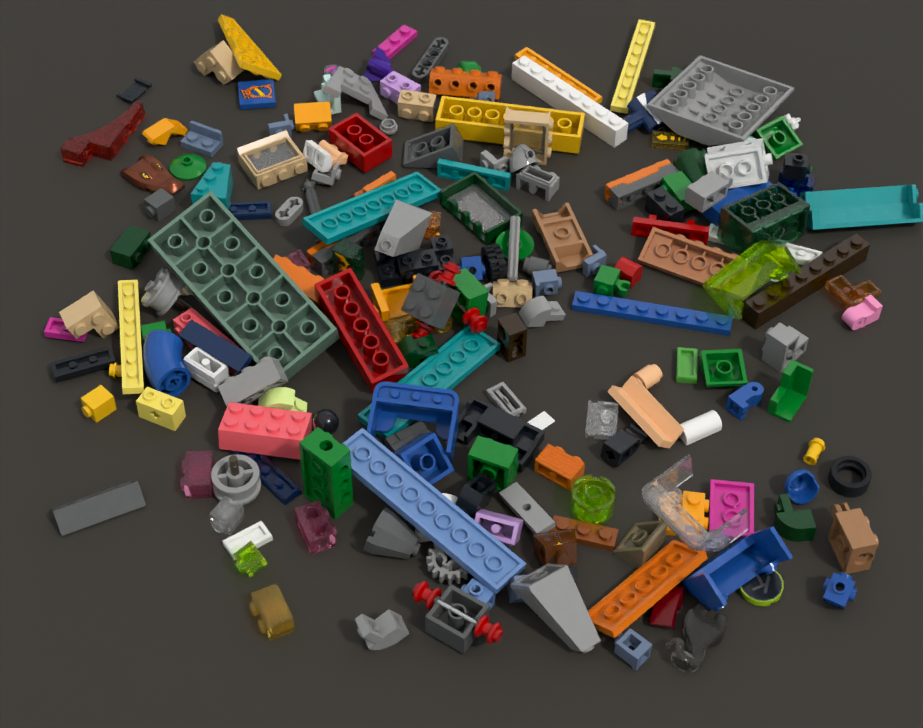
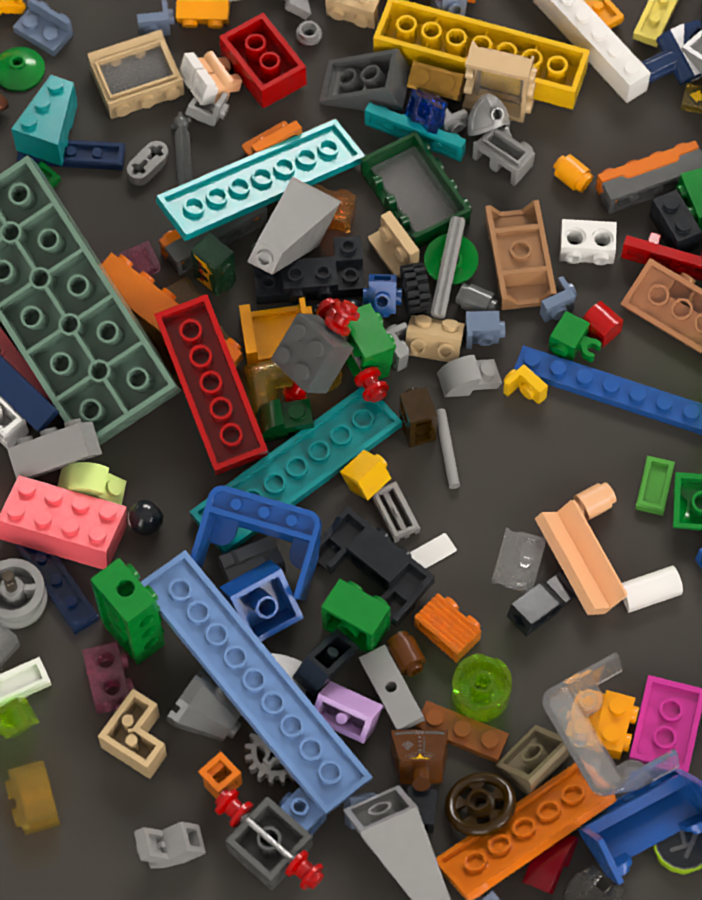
camera: 10 degrees right, 15 degrees up
(339, 560) = (128, 735): none -> tan brick
(409, 576) = (220, 775): none -> orange brick
(472, 237) = (393, 244): none -> tan bracket
(477, 142) = (436, 81): none -> pearl gold brick
(480, 156) = (426, 110): none -> clear blue brick
(481, 378) = (366, 474): none -> yellow brick
(533, 486) = (406, 654): none -> reddish brown brick
(536, 361) = (447, 449): none -> light grey bar
(584, 311) = (529, 383): none -> yellow bracket
(587, 188) = (573, 173): none -> light orange brick
(607, 225) = (587, 236): none -> white brick
(607, 576) = (476, 783): none -> dark brown plate

